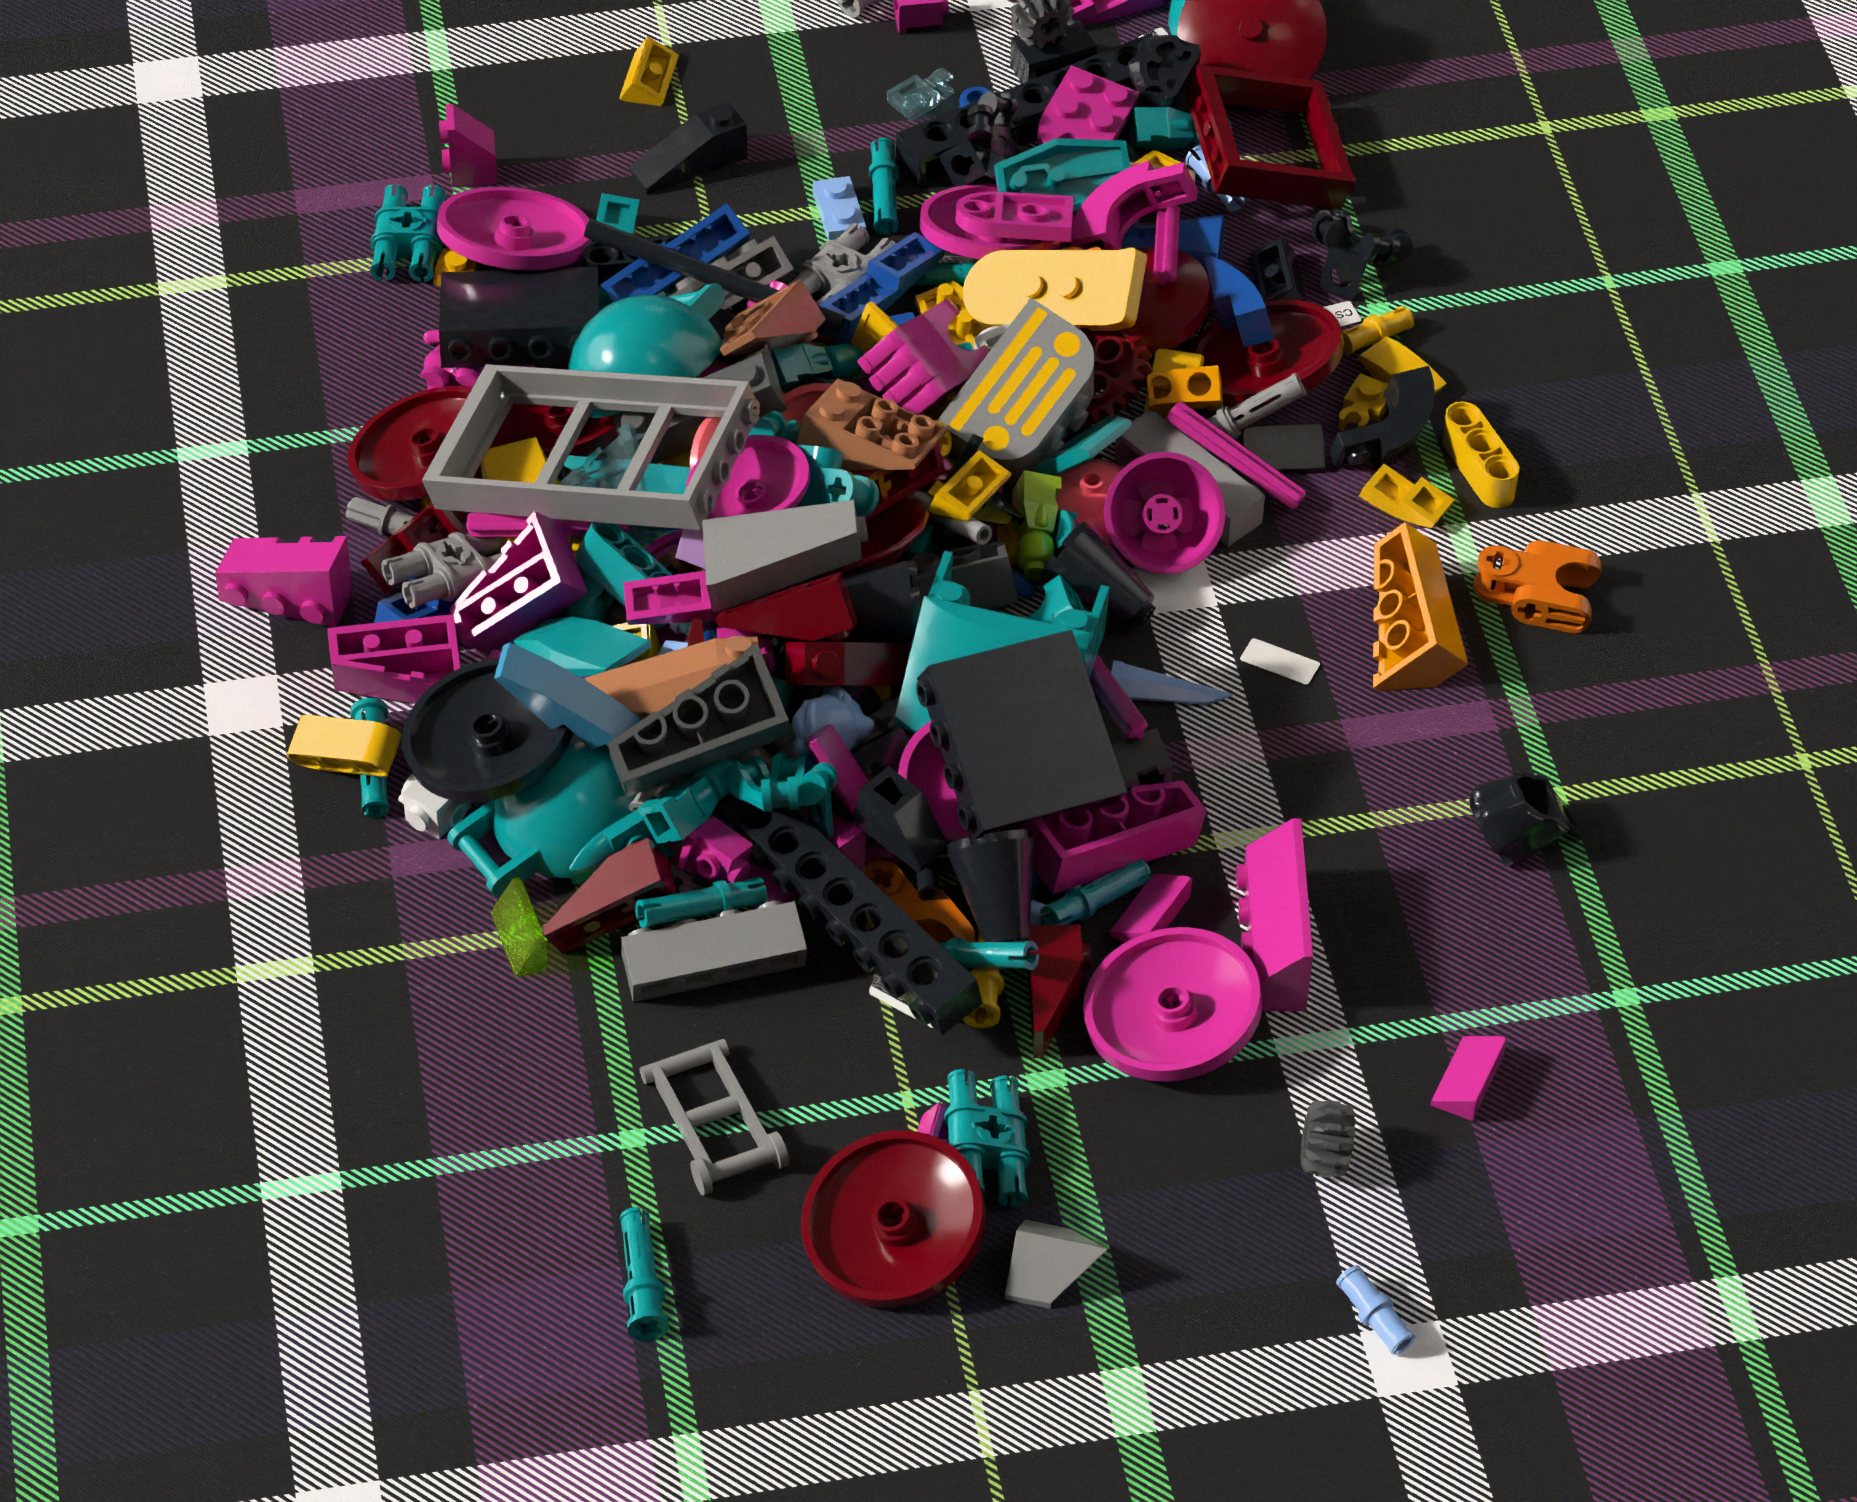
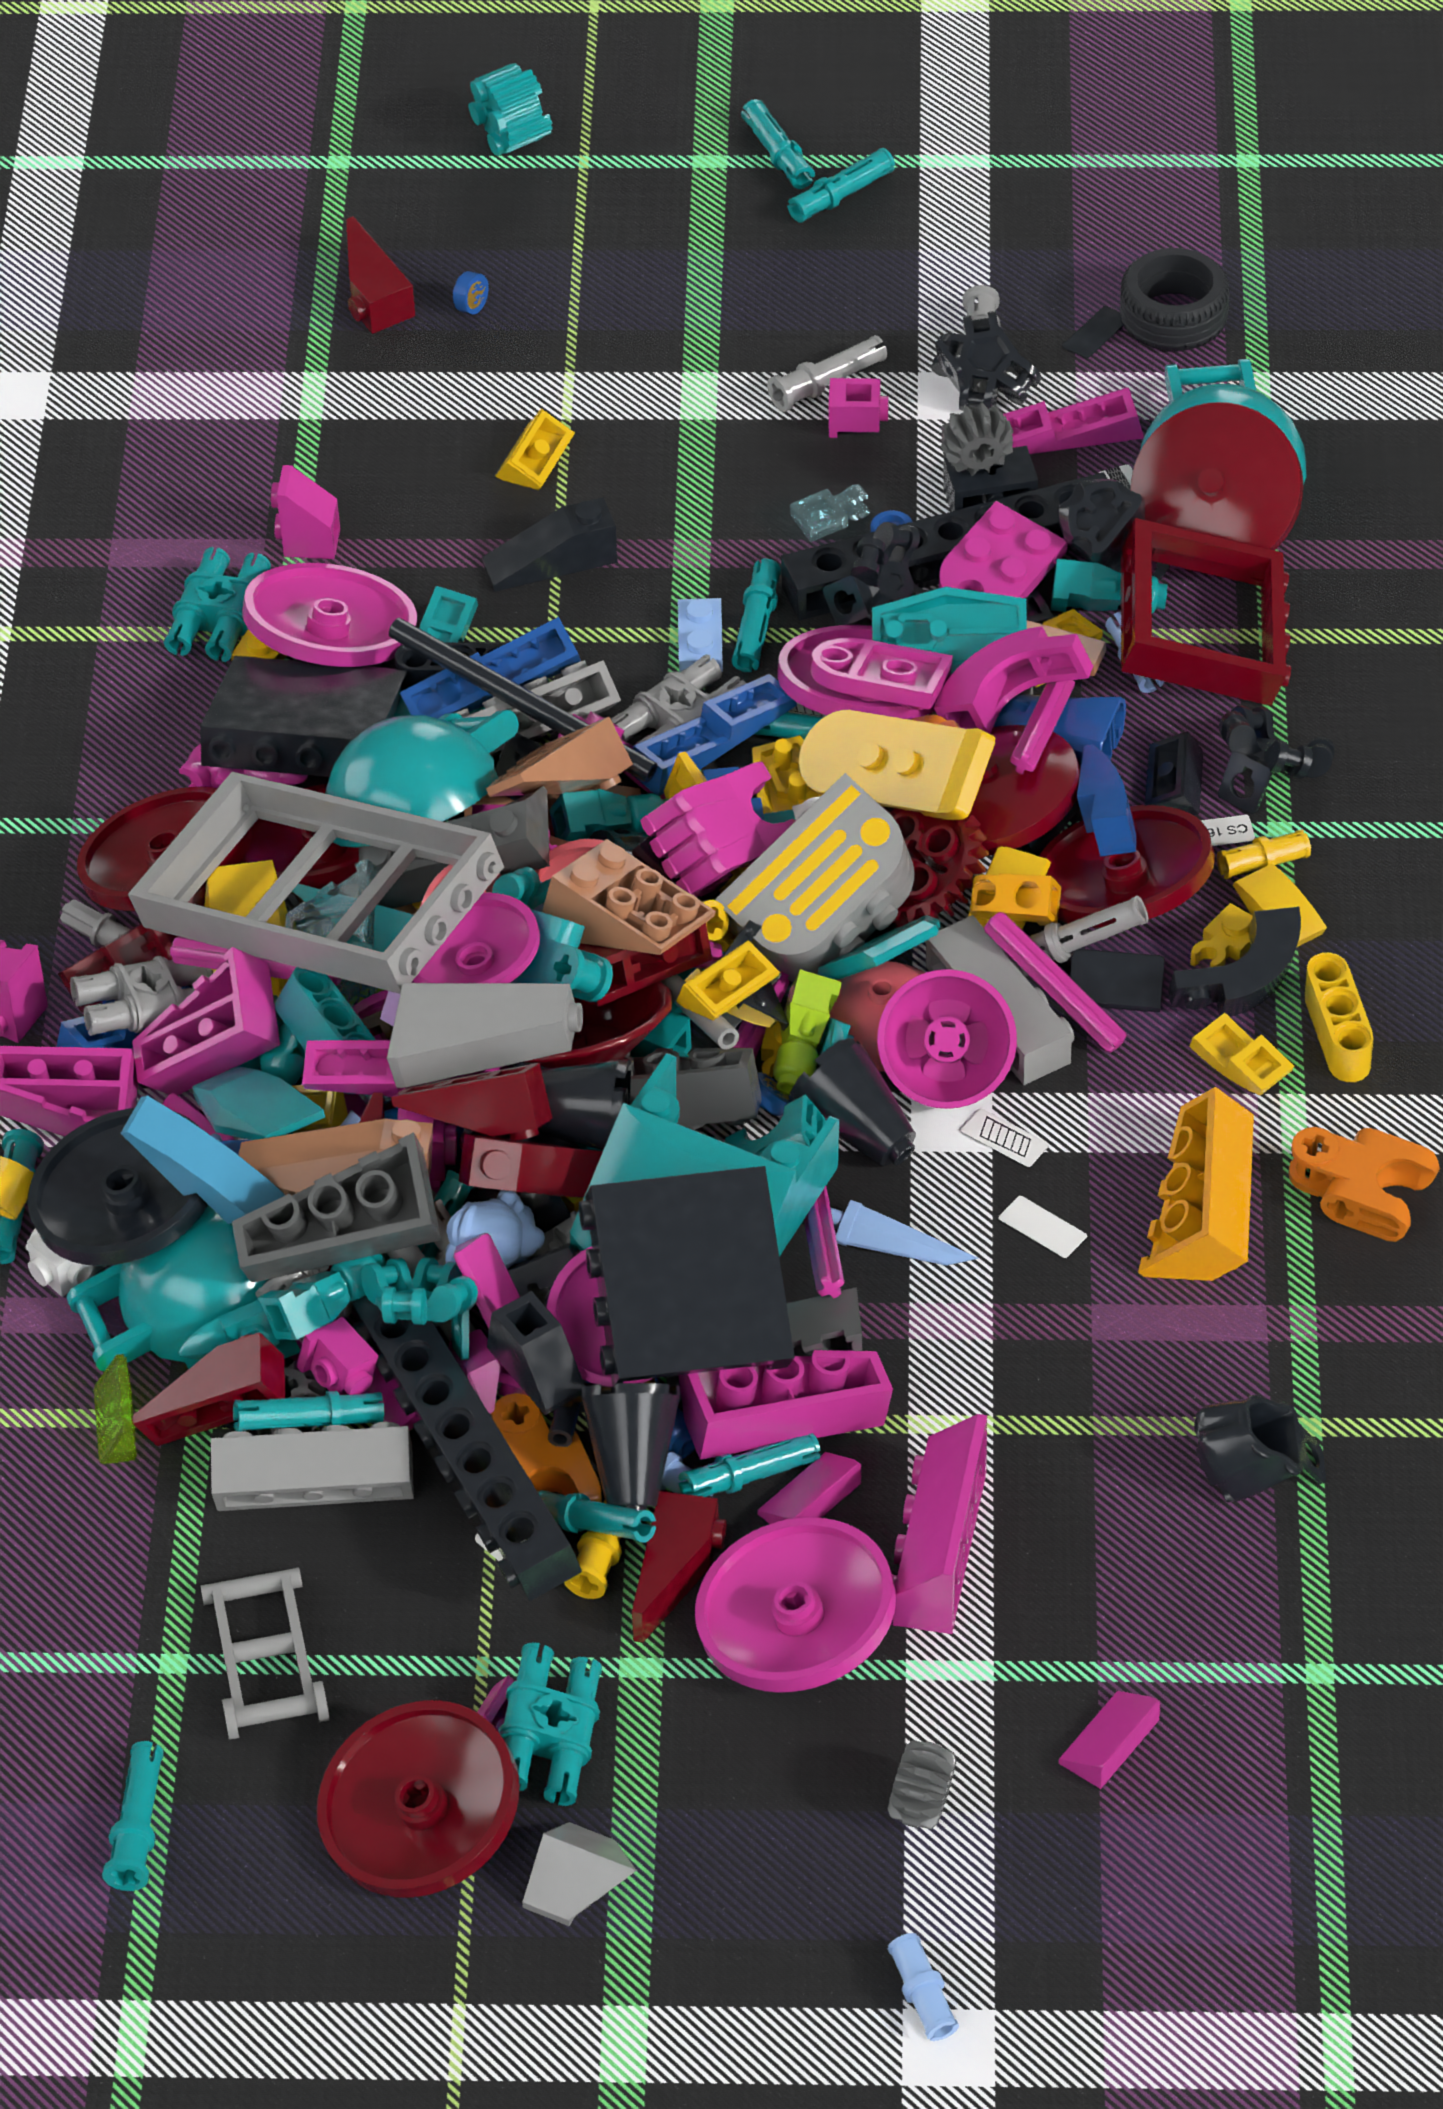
camera: 15 degrees right, 0 degrees up
(1225, 592) = (1005, 1137): none -> white sticker

